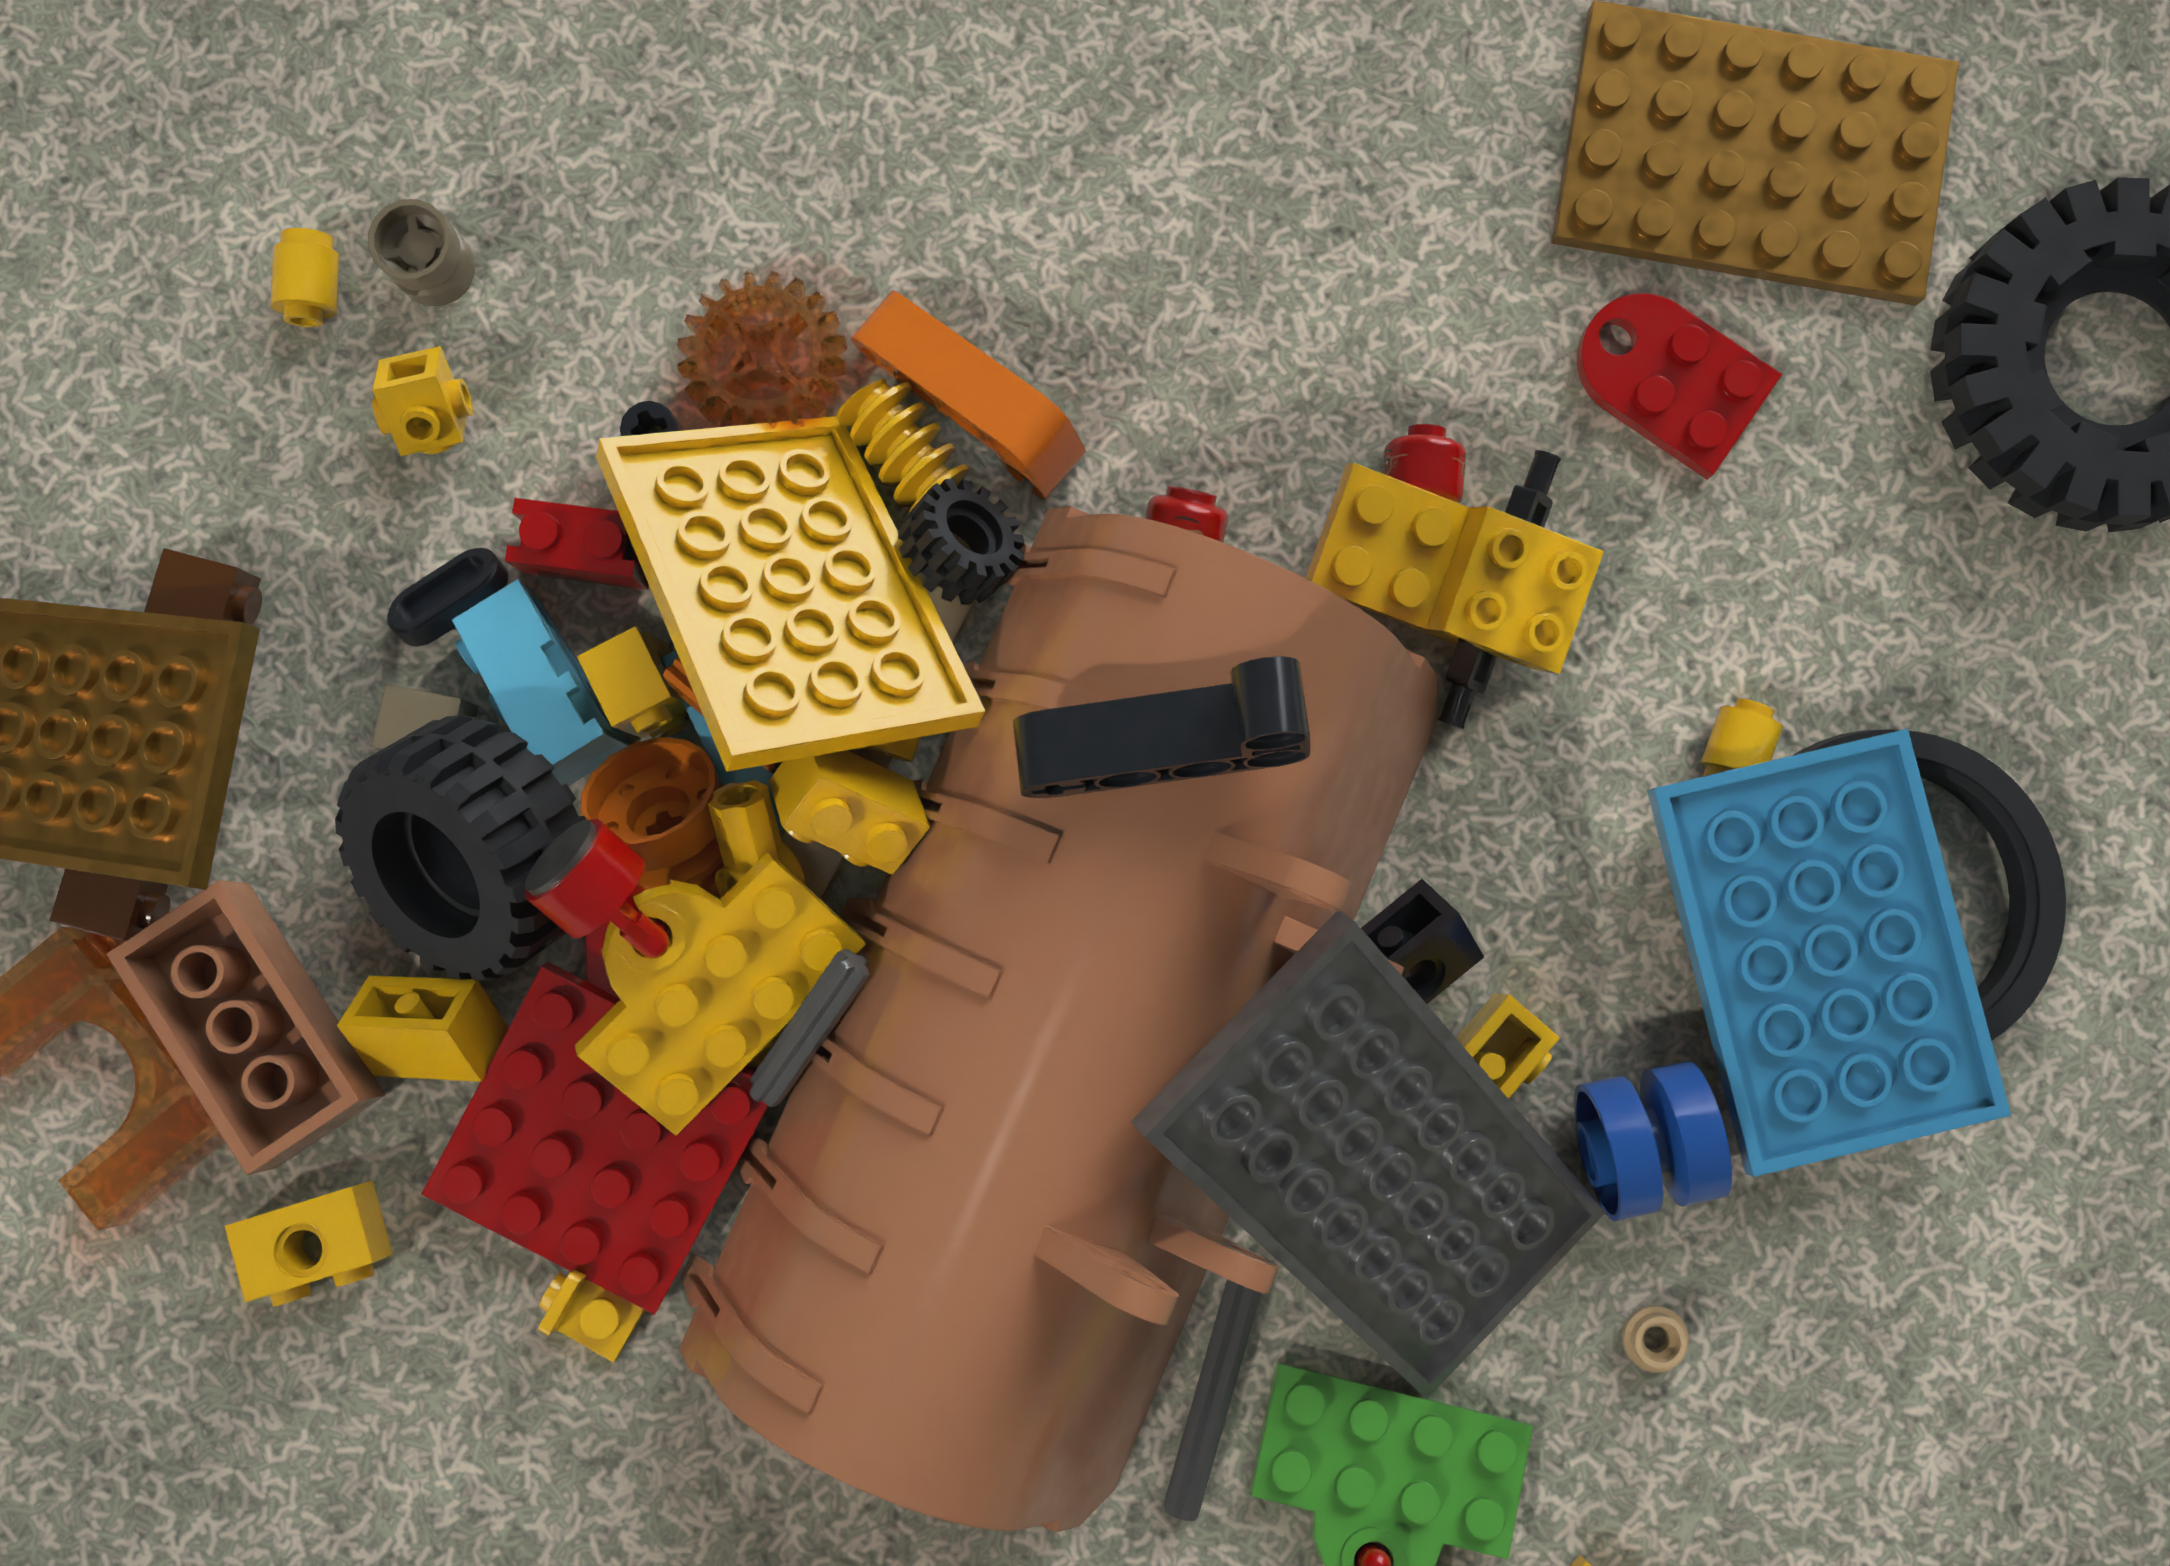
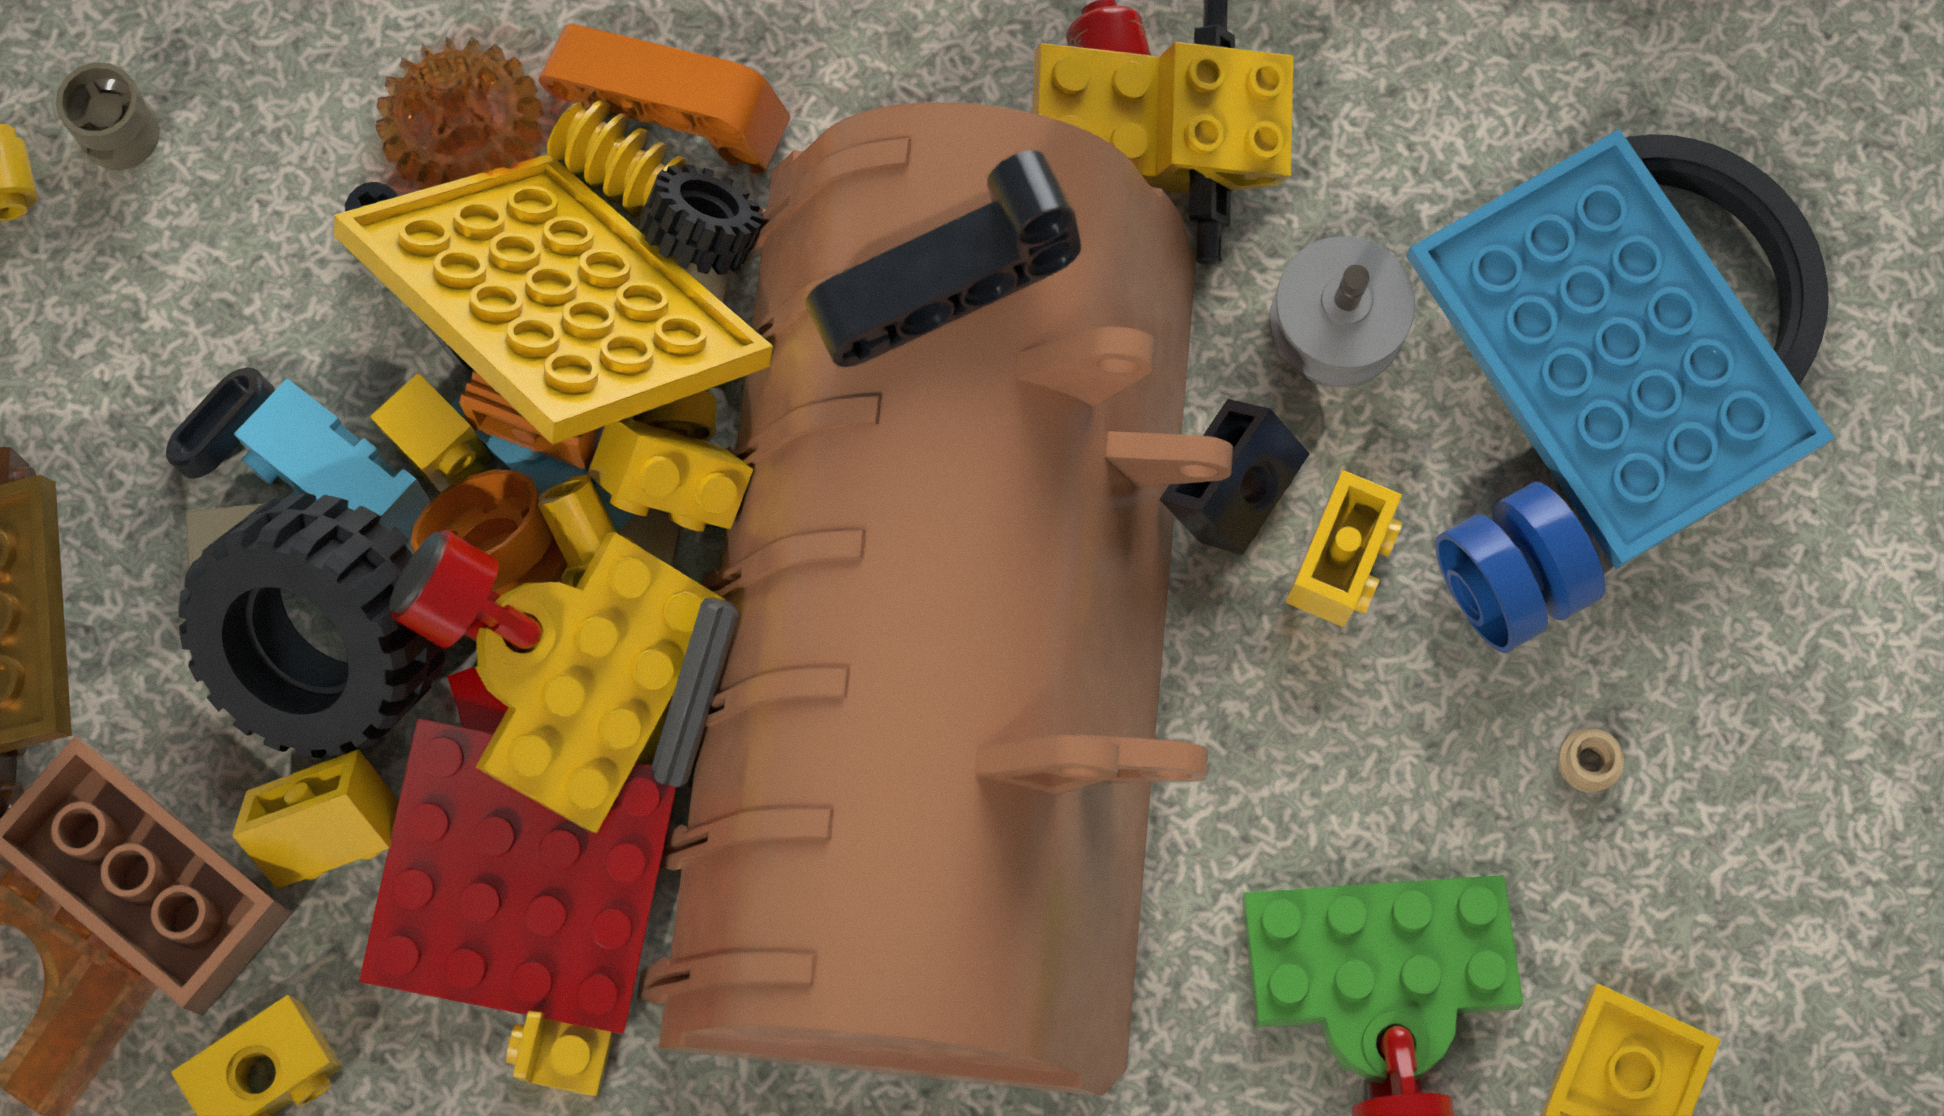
camera: 20 degrees left, 10 degrees down
(420, 402) = (145, 250): yellow brick -> none
(573, 544) = (338, 334): red brick -> none
(1211, 1402) = (1191, 941): dark grey axle -> none
(1372, 1156) = (1266, 632): flat silver plate -> none
(1565, 822) = (1341, 311): none -> light grey wheel
(1741, 737) = (1476, 183): yellow brick -> none

